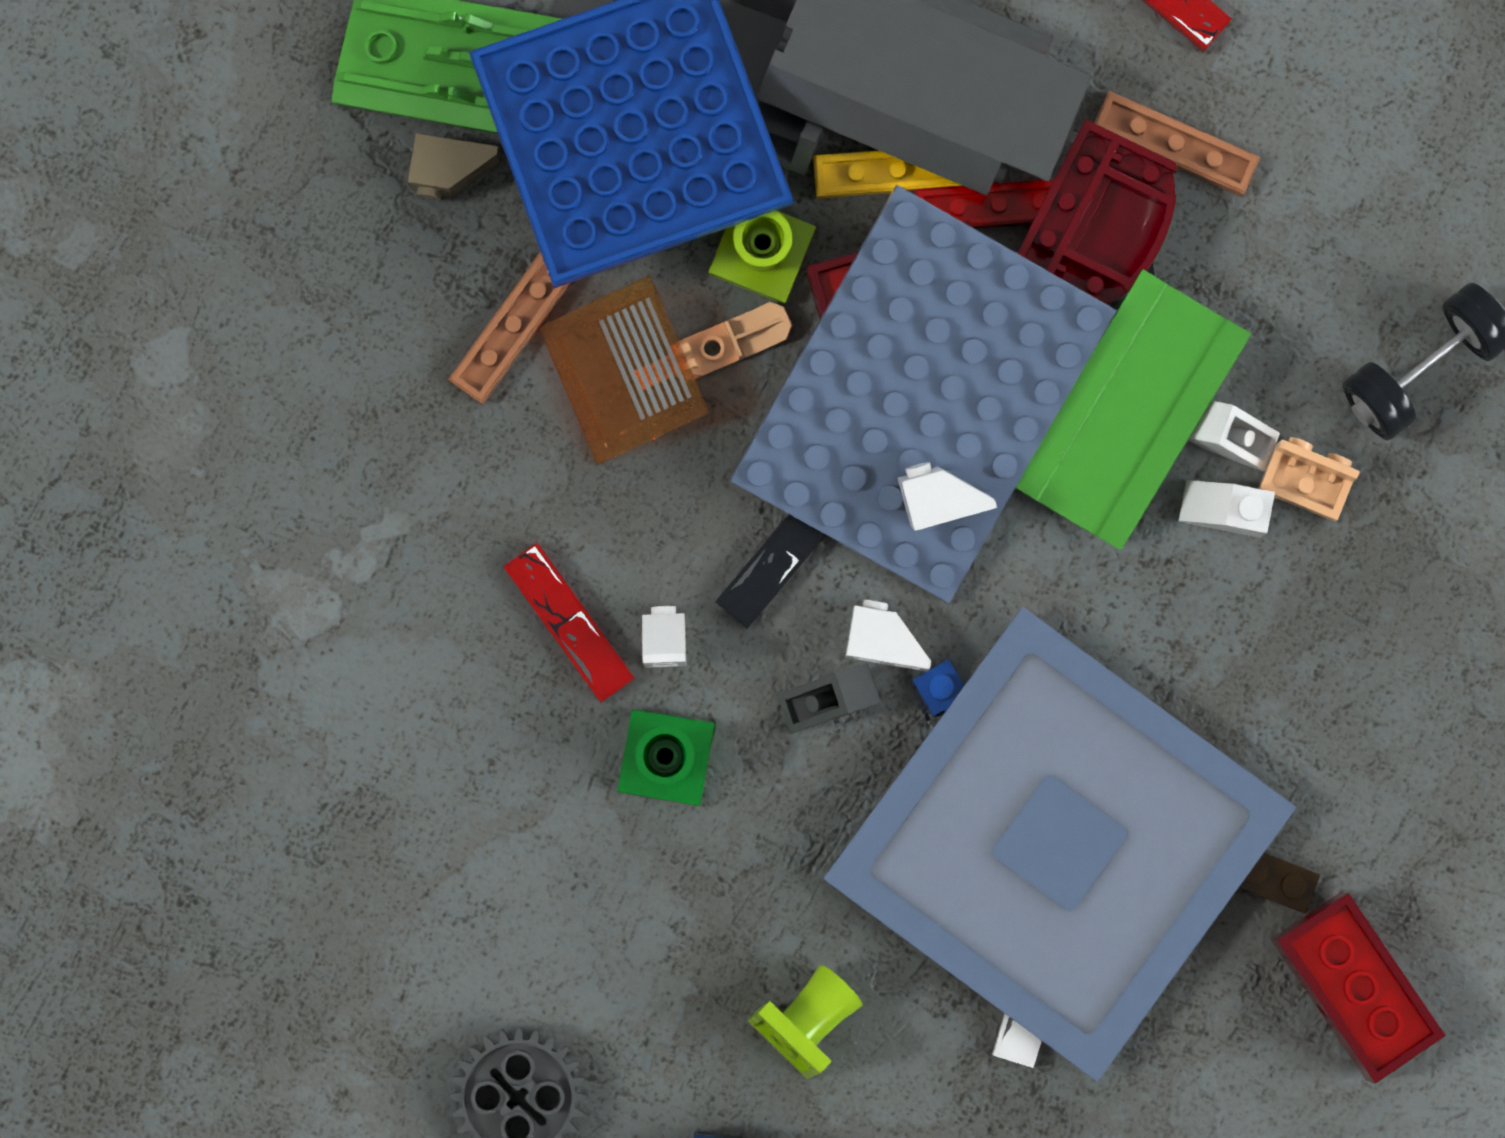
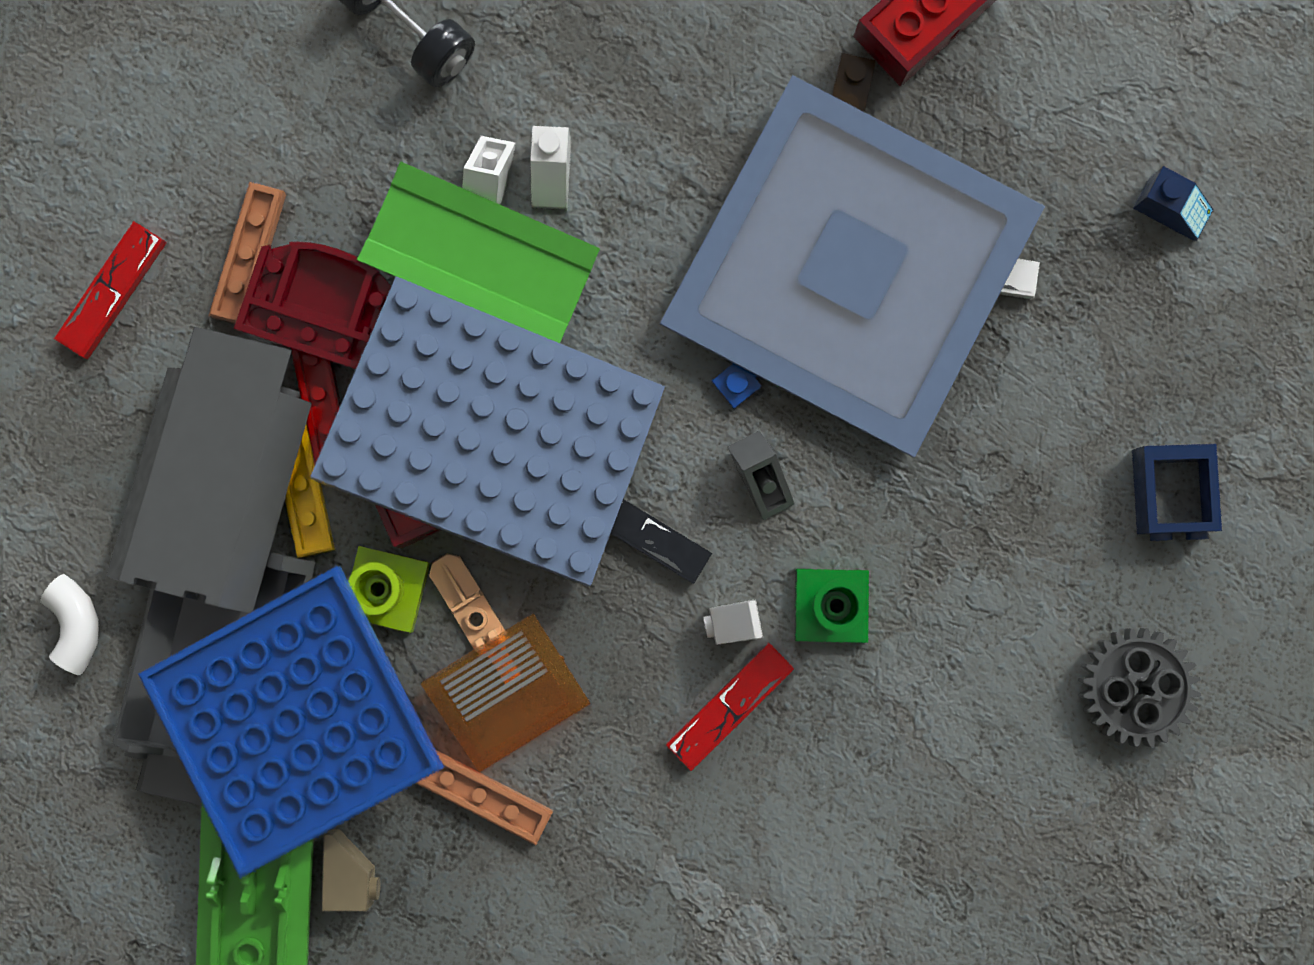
camera: 95 degrees left, 0 degrees up
(807, 1020) = (1035, 450): lime plant -> none
(883, 638) = (703, 437): white slope -> none
(939, 497) = (579, 403): white slope -> none
(1309, 478) = (515, 104): light nougat bracket -> none

